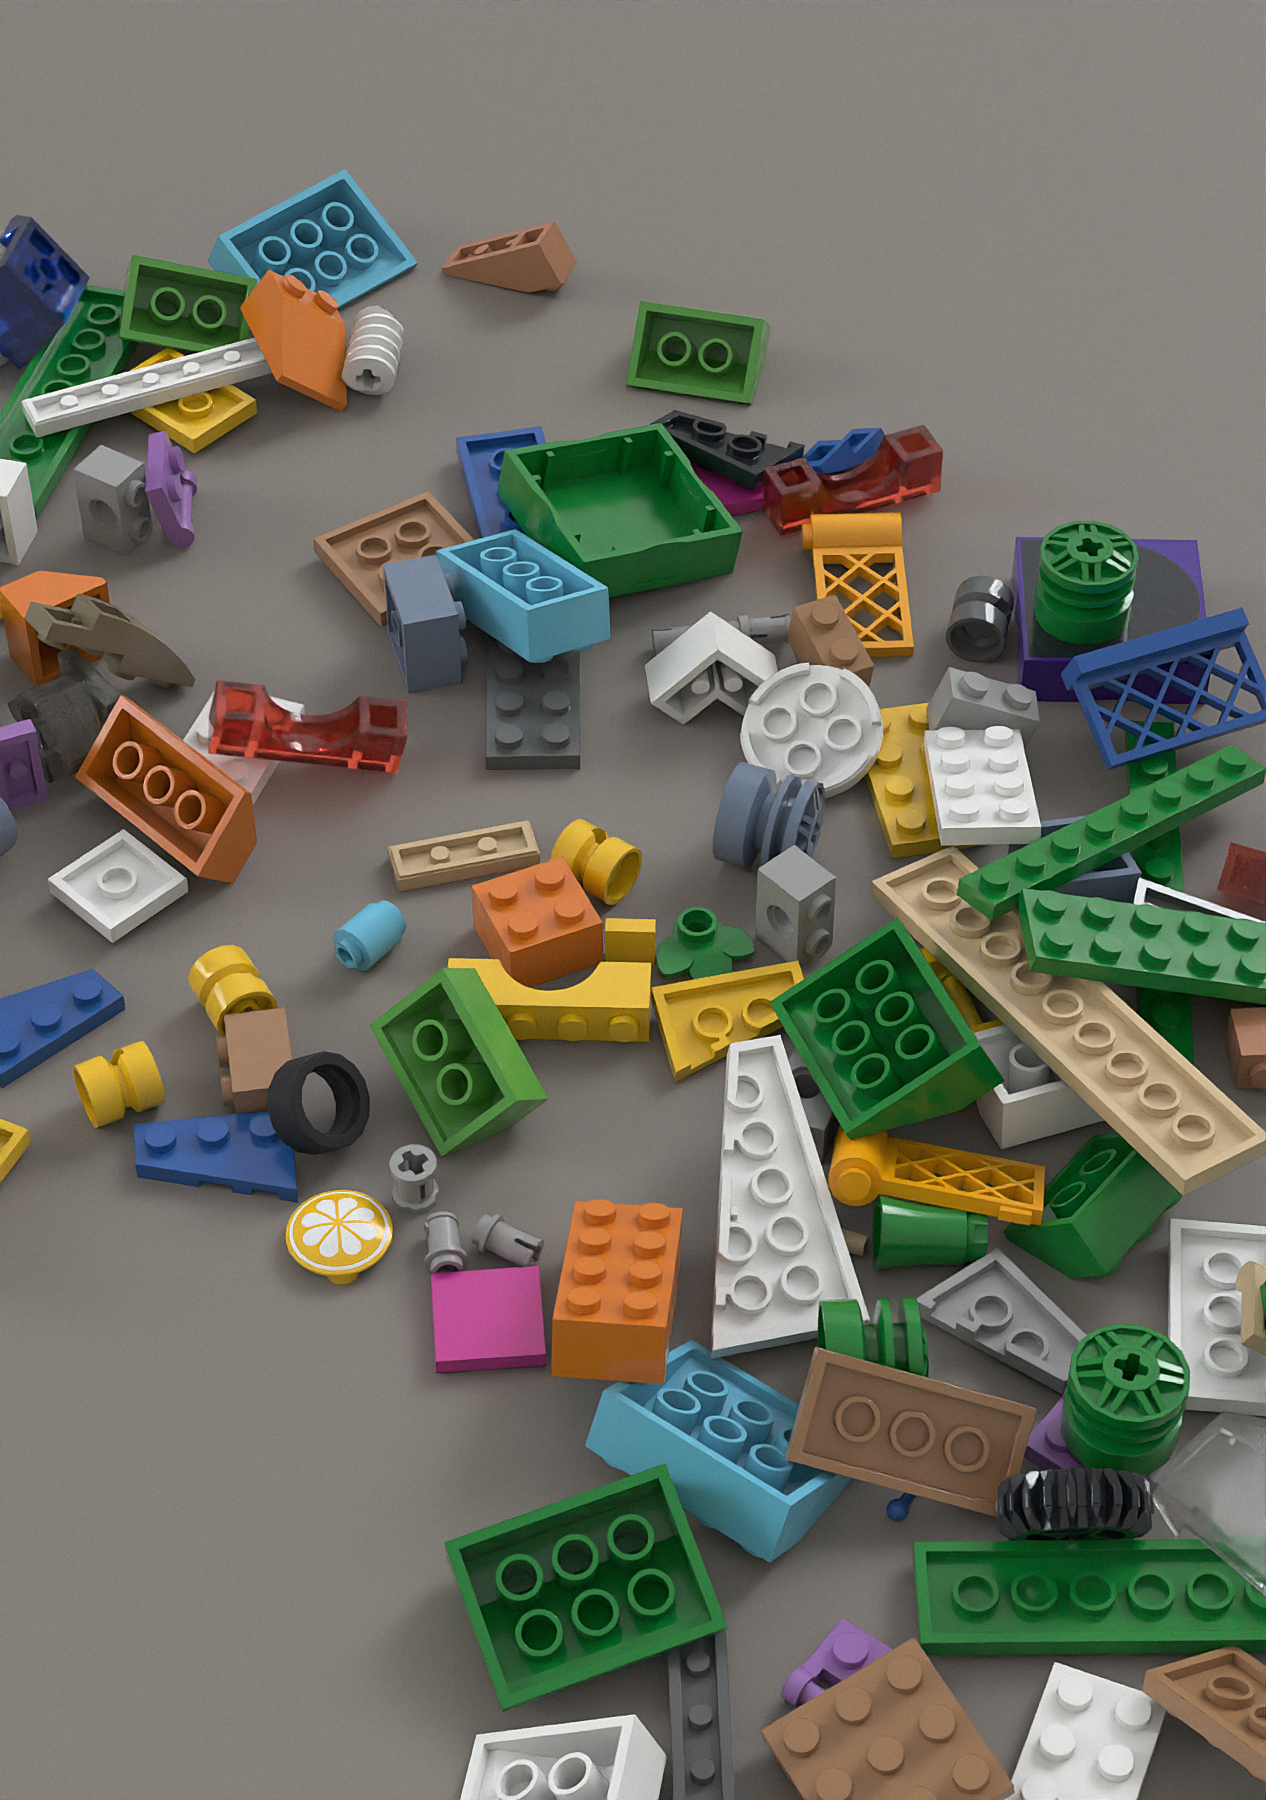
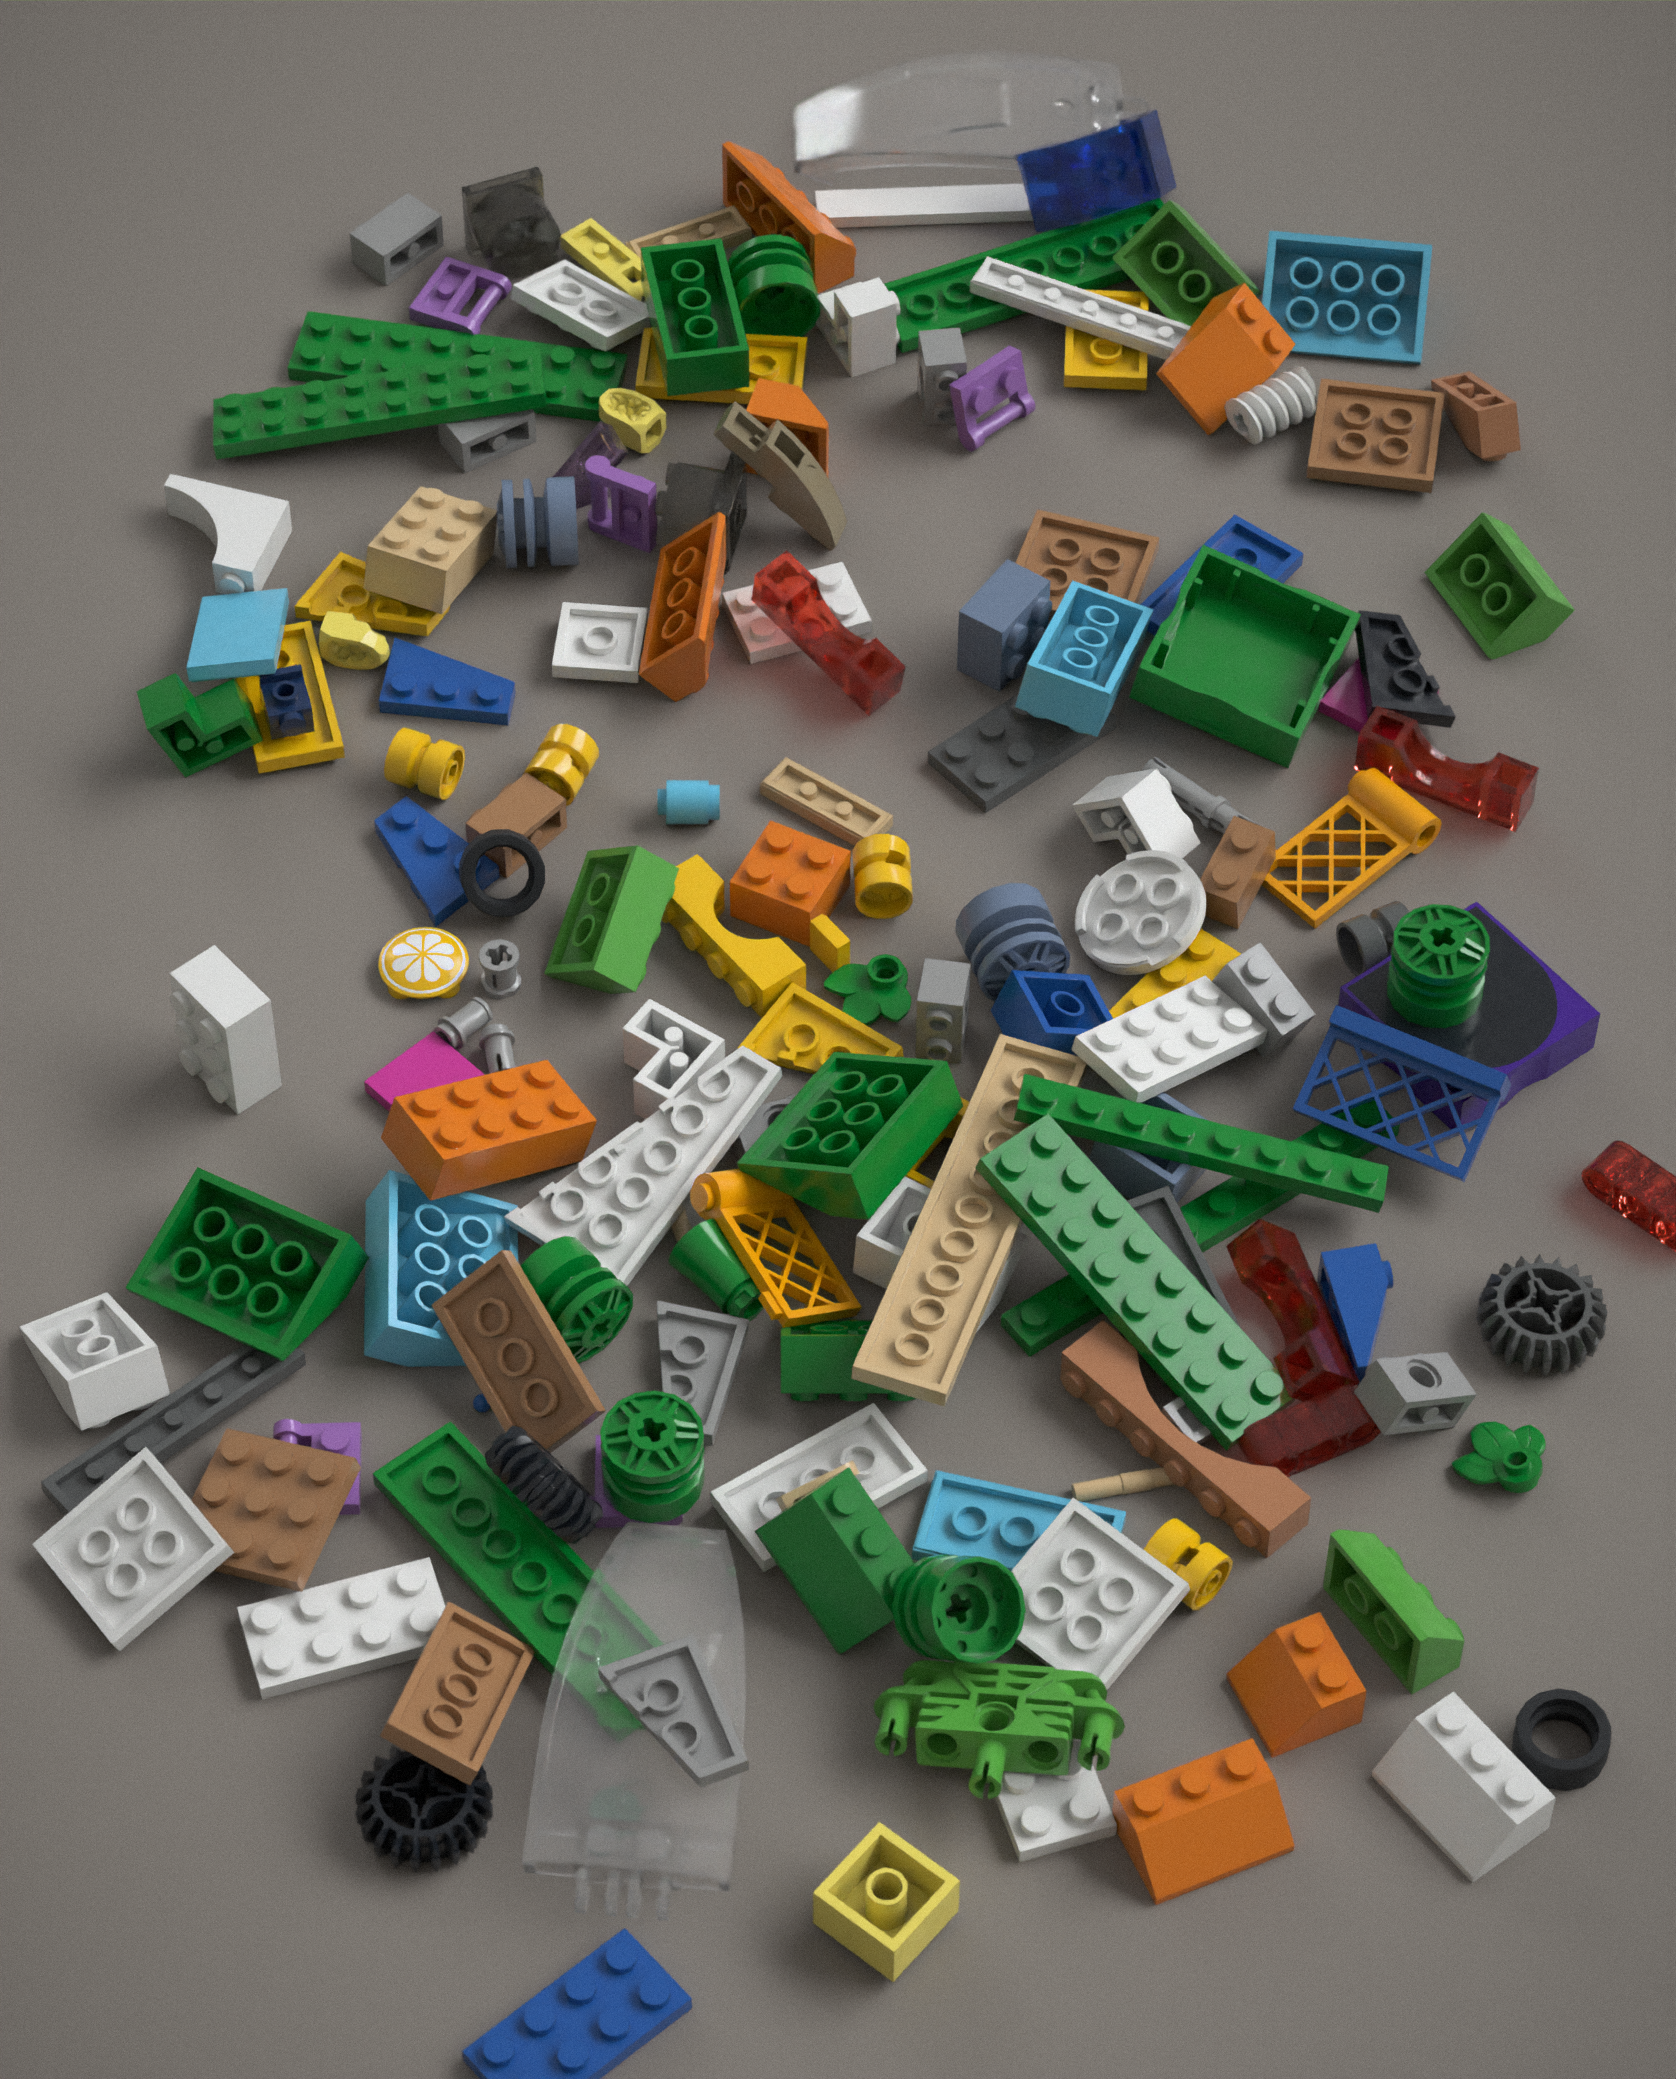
camera: 50 degrees right, 5 degrees up
(297, 1414) = (225, 1030): none -> white brick
(469, 324) = (1375, 435): none -> medium nougat plate
(659, 1113) = (667, 1053): none -> white brick
(843, 454) = (1463, 742): blue slope -> none
(867, 843) = (1049, 1008): none -> blue slope

